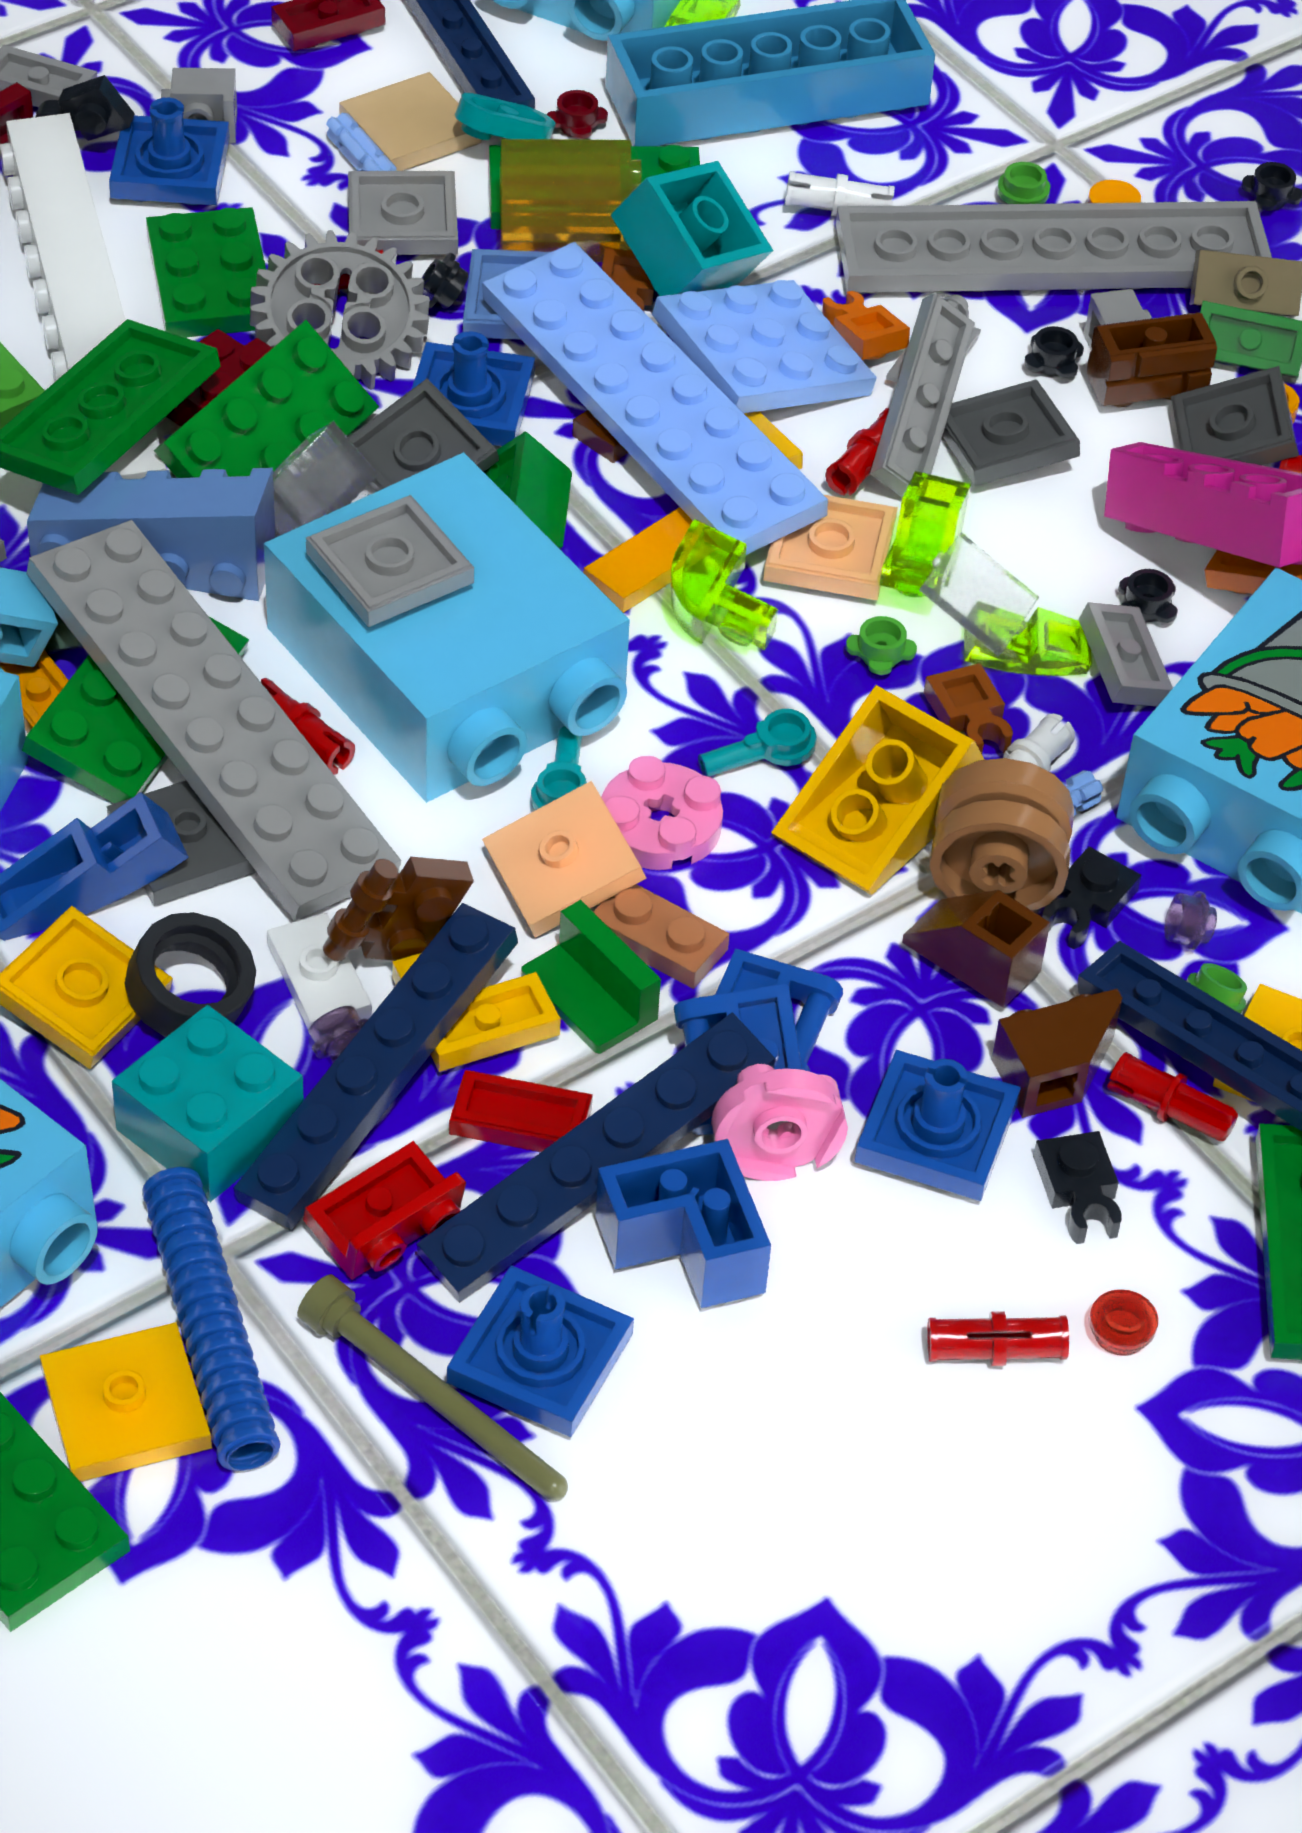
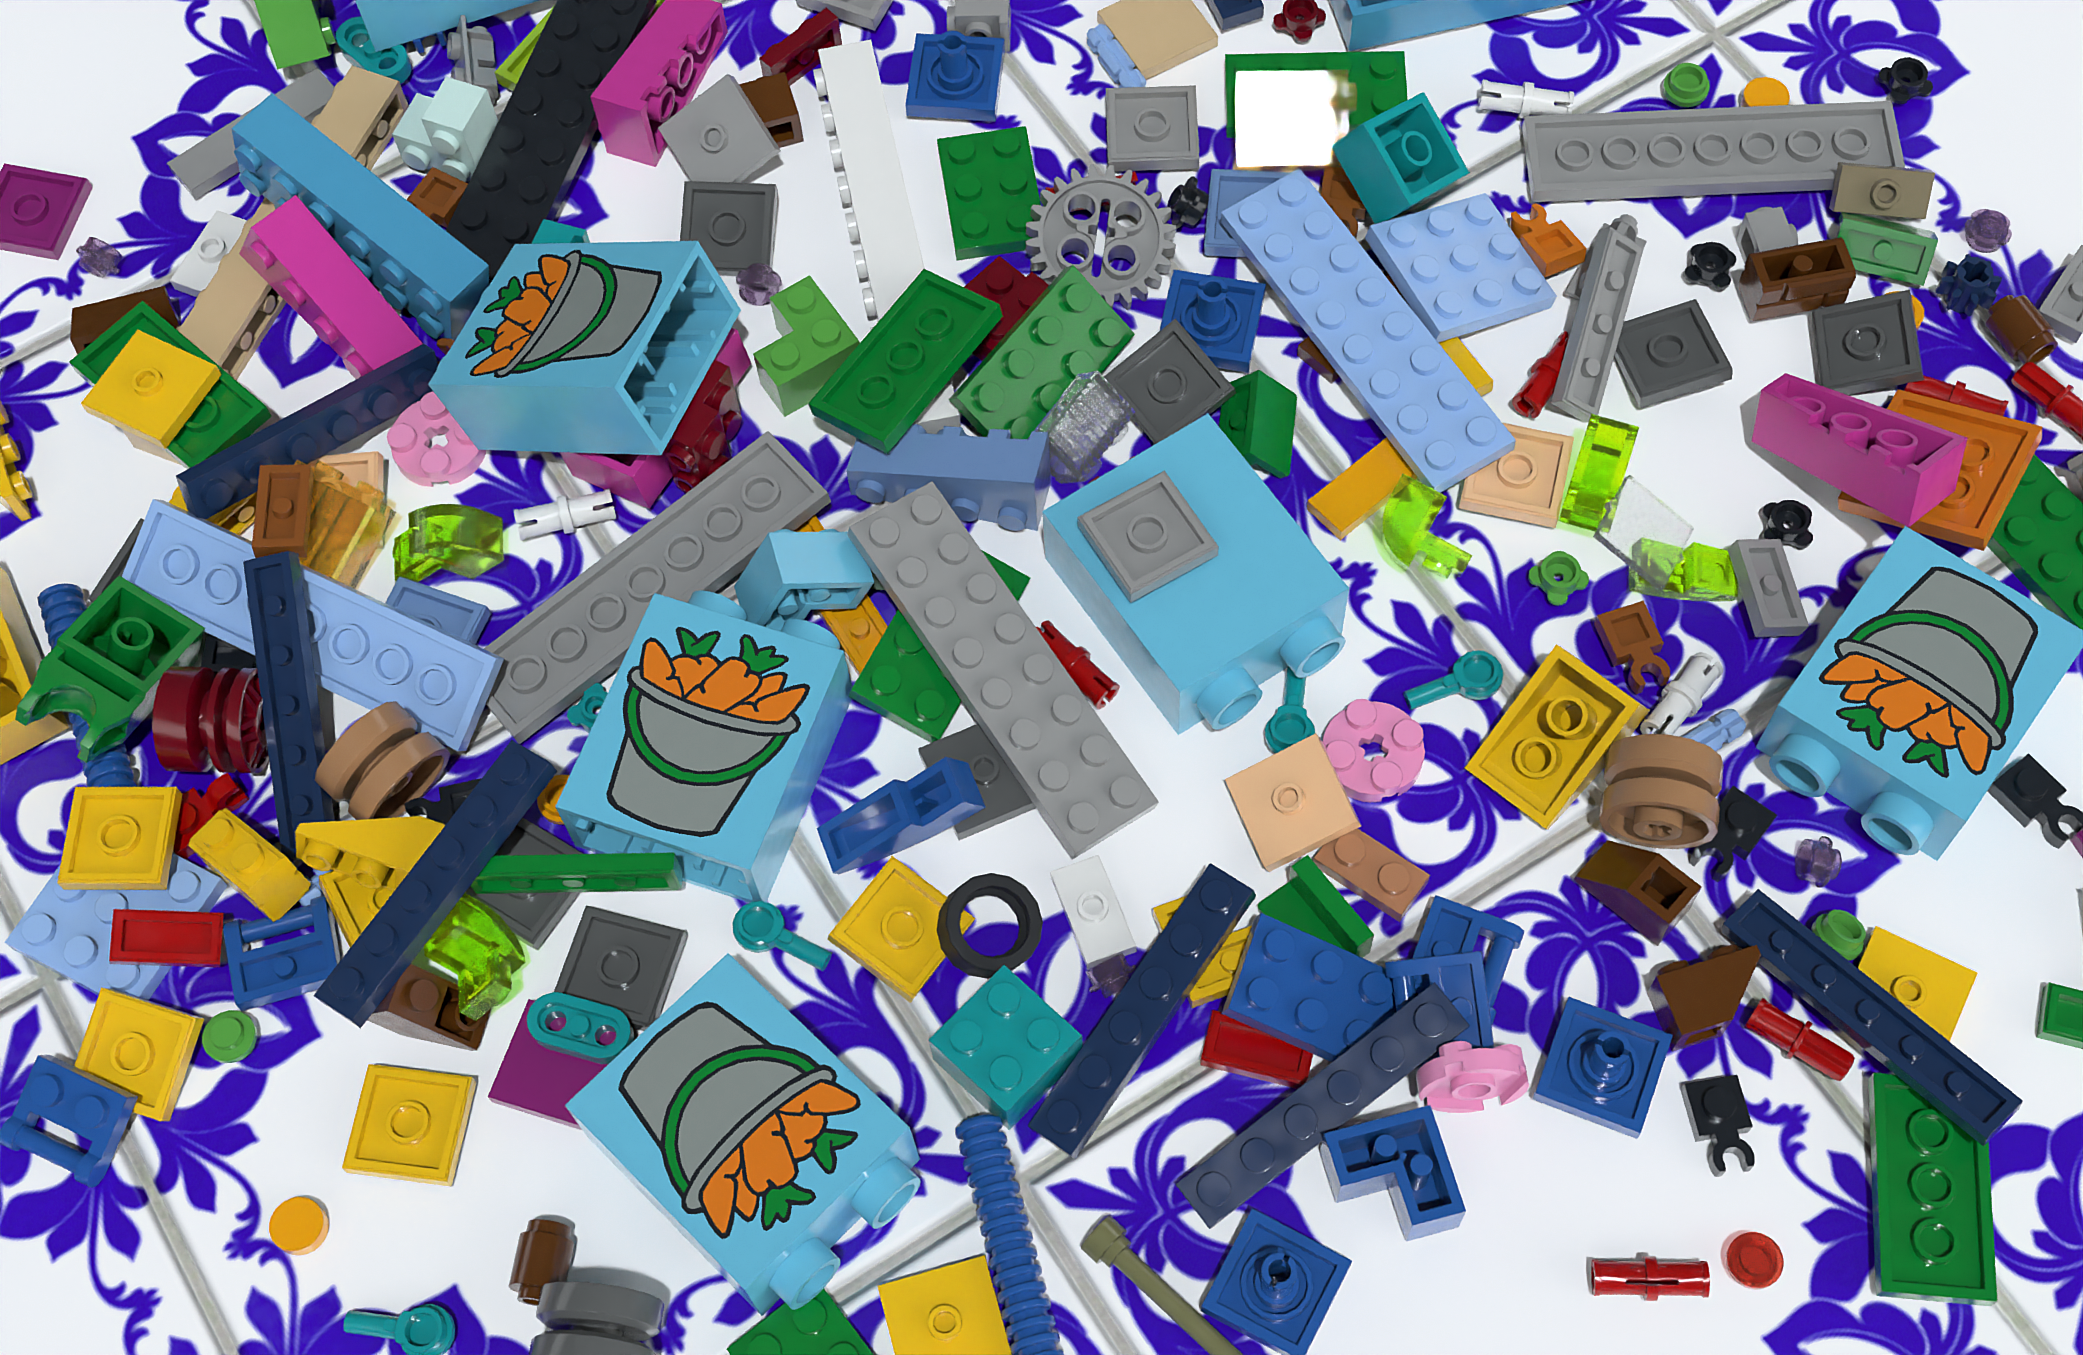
camera: 10 degrees right, 15 degrees up
(93, 107) = (888, 30): black plate -> none
(384, 1210) = (1149, 1150): red bracket -> none
(395, 911) = (1158, 872): reddish brown plate -> none
(490, 116) = (1237, 31): teal plate -> none
(574, 1037) = (1307, 990): none -> blue plate

